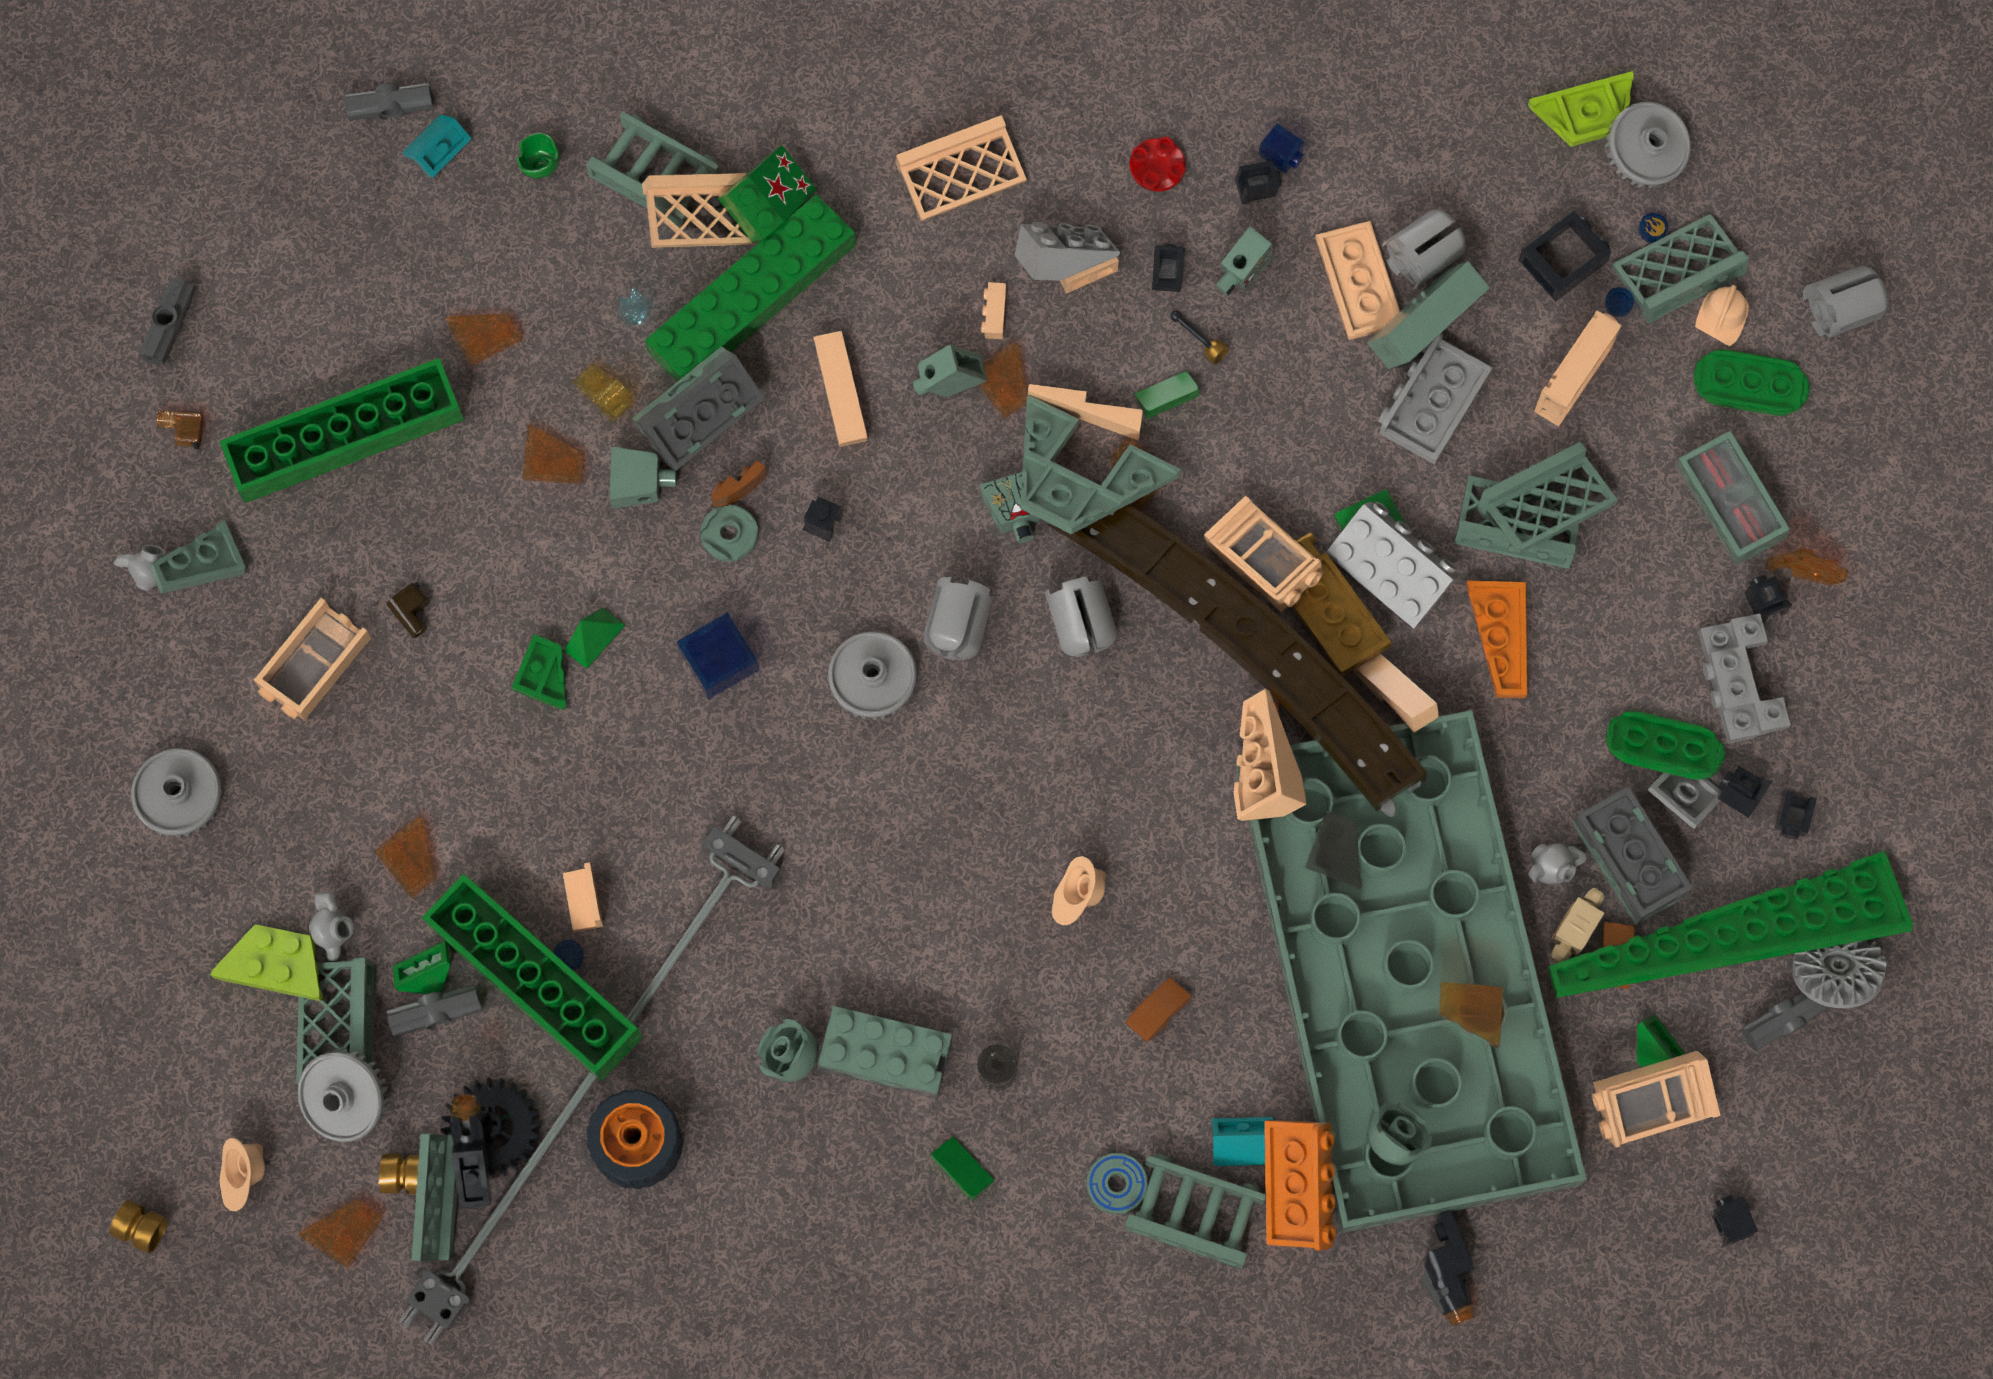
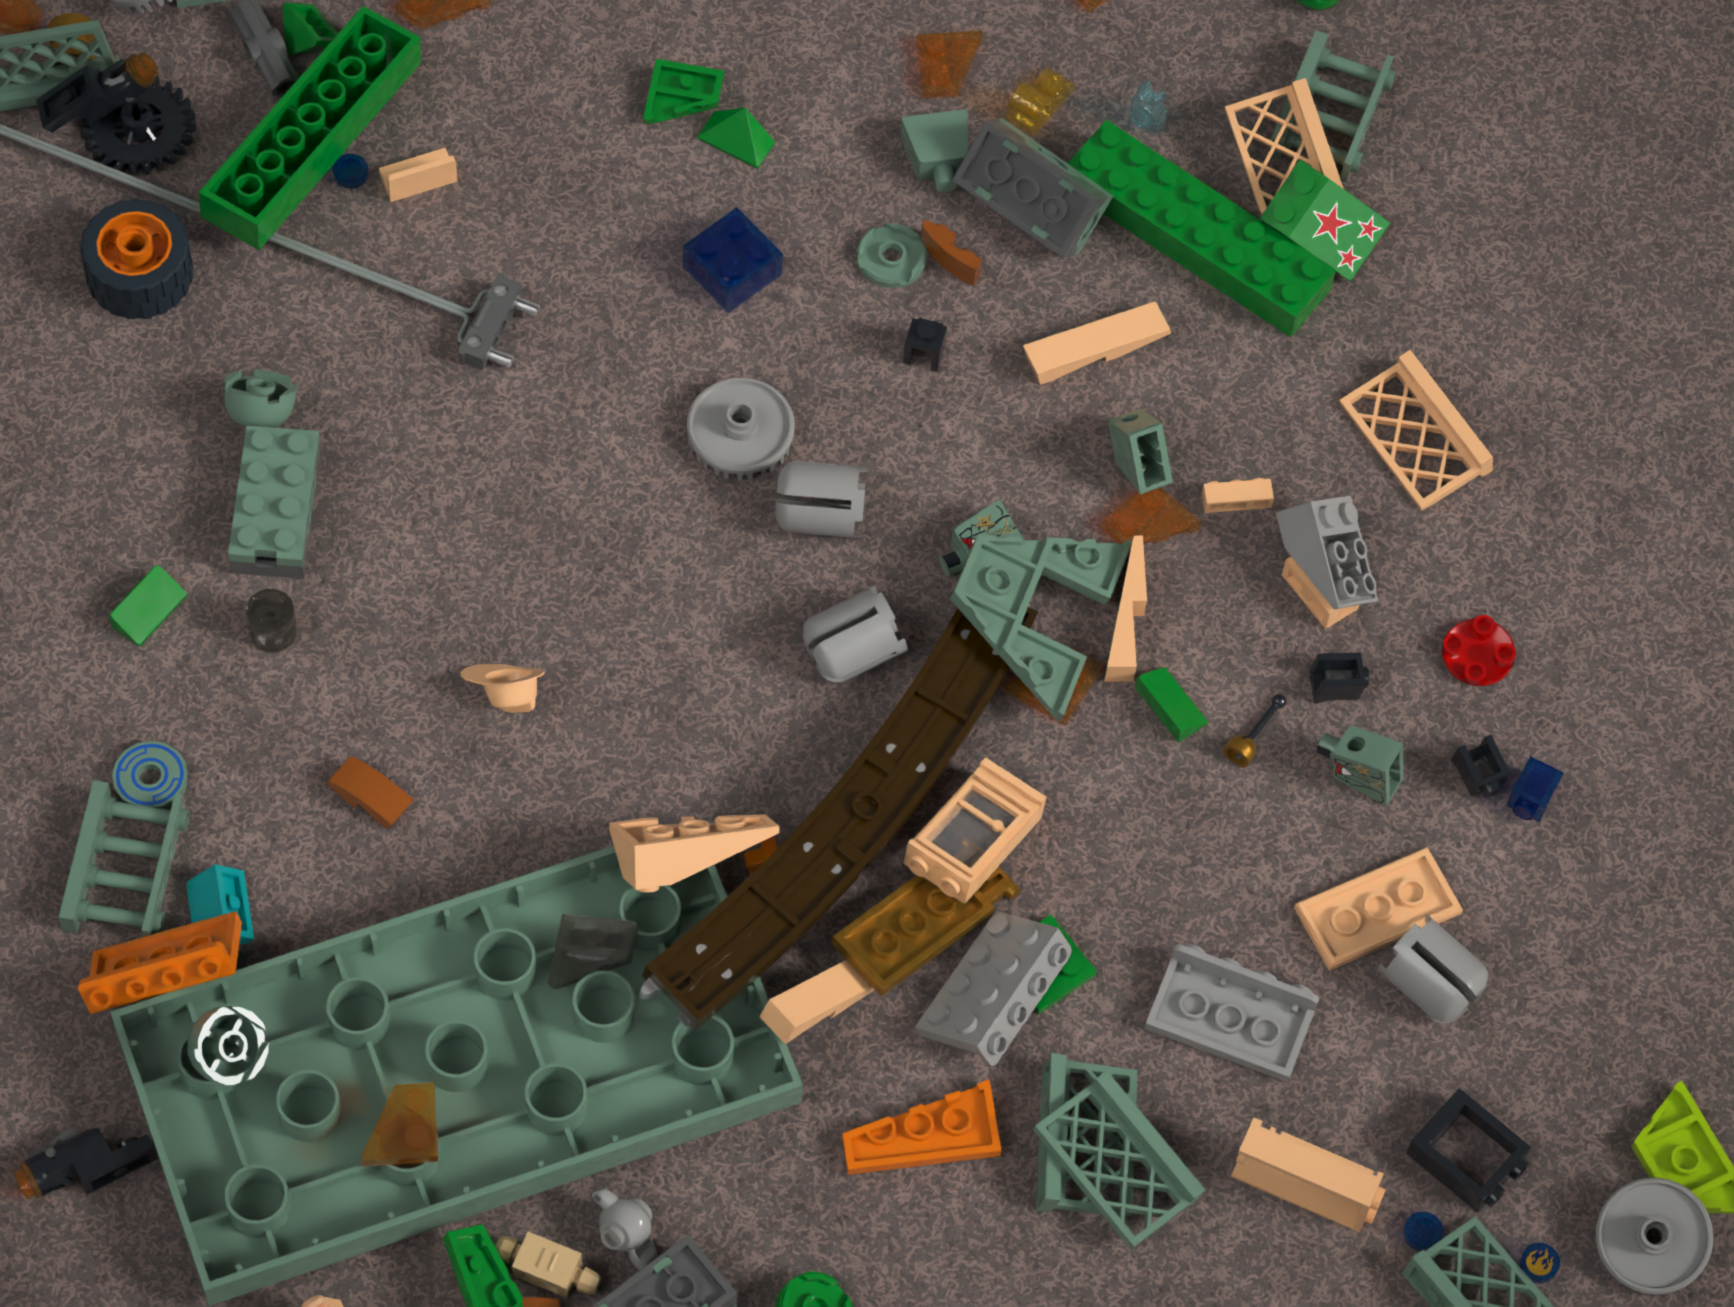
camera: 75 degrees right, 10 degrees down
(1428, 315) = (1338, 979): sand green brick -> none

